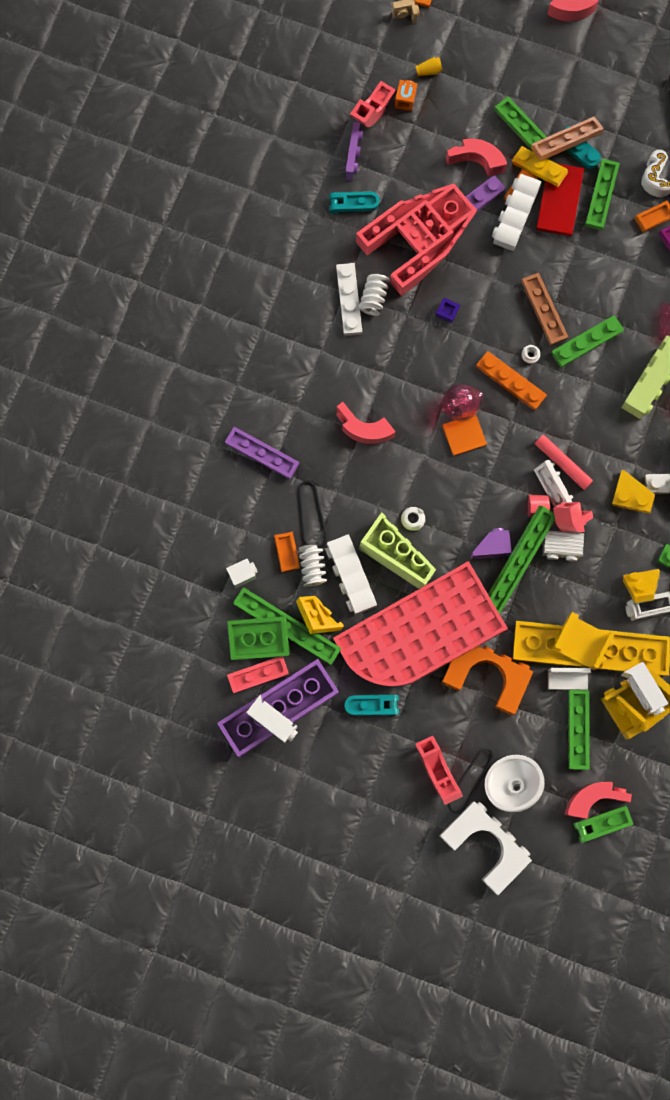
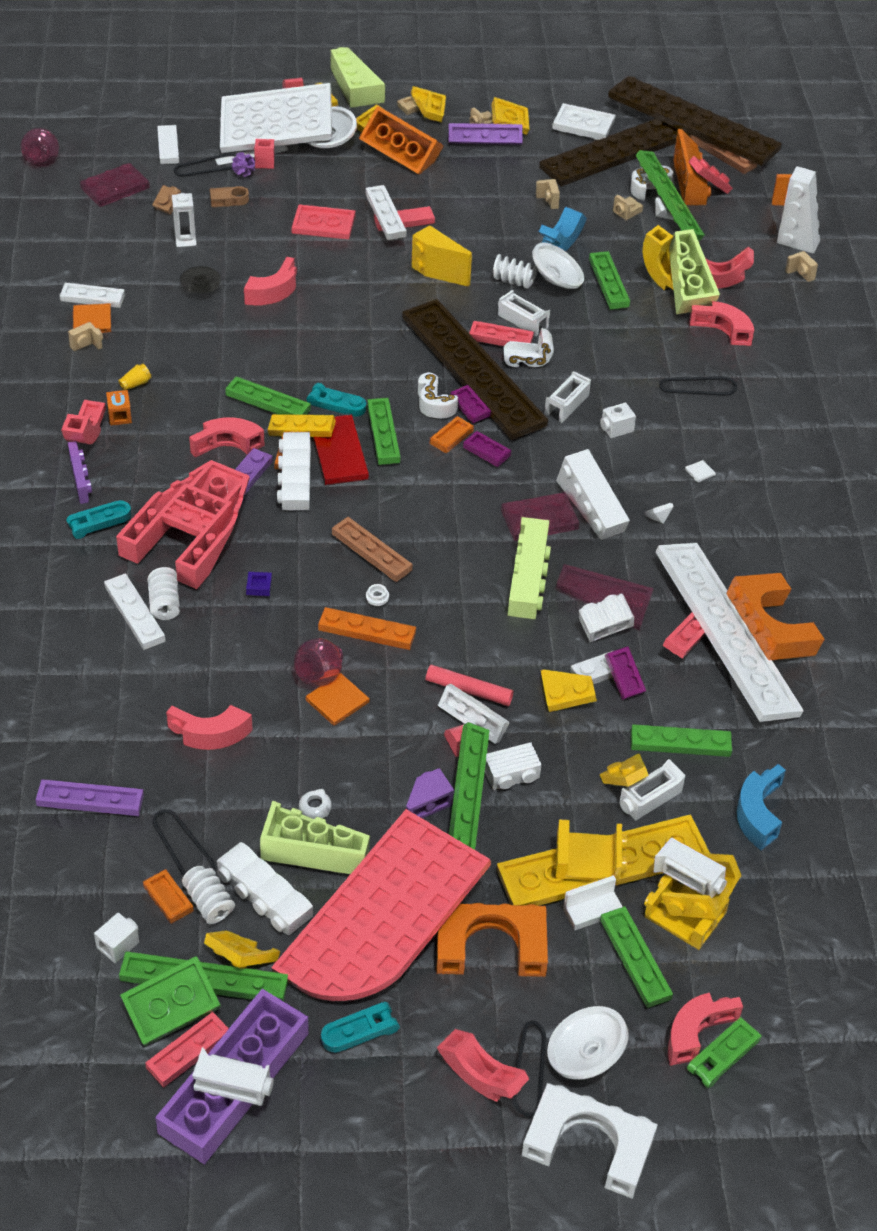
camera: 25 degrees left, 30 degrees down
(567, 138) = (319, 390): nougat plate -> none
(570, 517) = (506, 728): coral brick -> none
(587, 341) = (436, 565): bright green plate -> none

